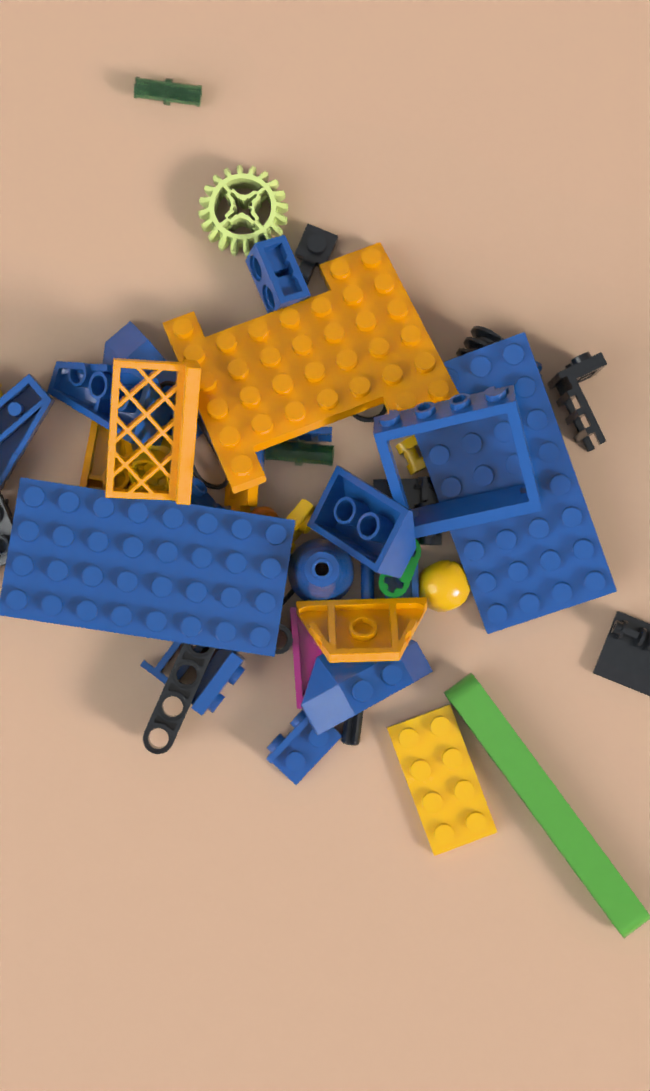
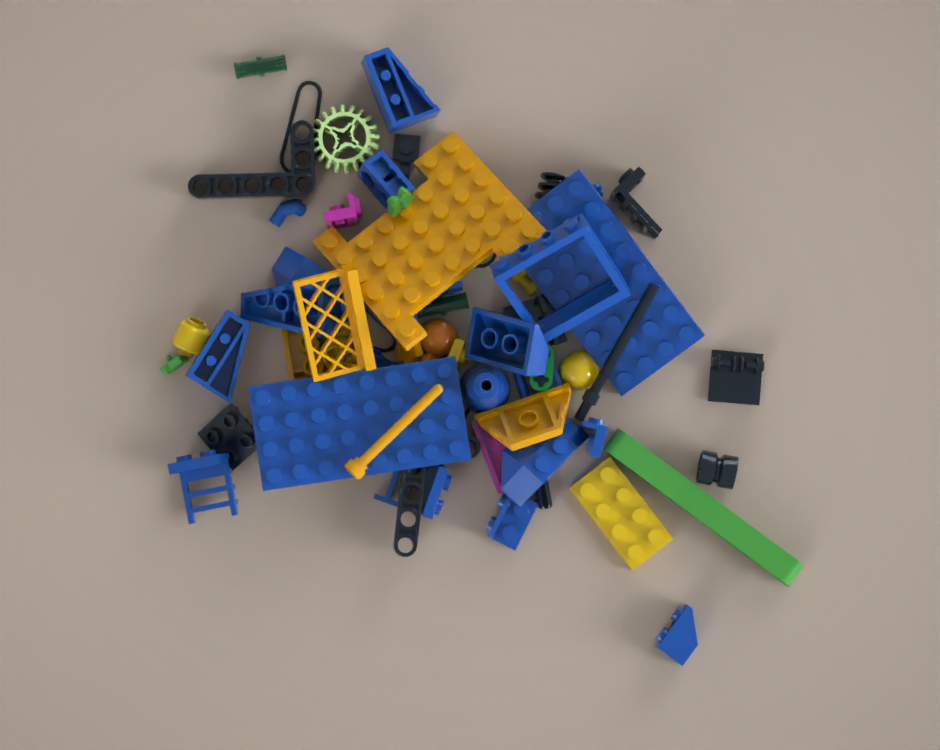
camera: 20 degrees left, 0 degrees up
(127, 621) = (359, 465): none -> light orange piece
(131, 230) = (265, 179): none -> black beam
(146, 275) = (286, 208): none -> blue arm
(182, 175) = (292, 117): none -> black piece
(213, 304) = (343, 217): none -> dark pink bracket
(282, 490) = (439, 337): none -> orange hair
(283, 303) = (396, 203): none -> bright green piece
(325, 175) = (396, 92): none -> blue wedge
(439, 683) = (596, 441): none -> blue bracket
(450, 622) = (592, 395): none -> black bar
(468, 959) = (680, 637): none -> blue slope
(576, 762) = (717, 469): none -> black wheel

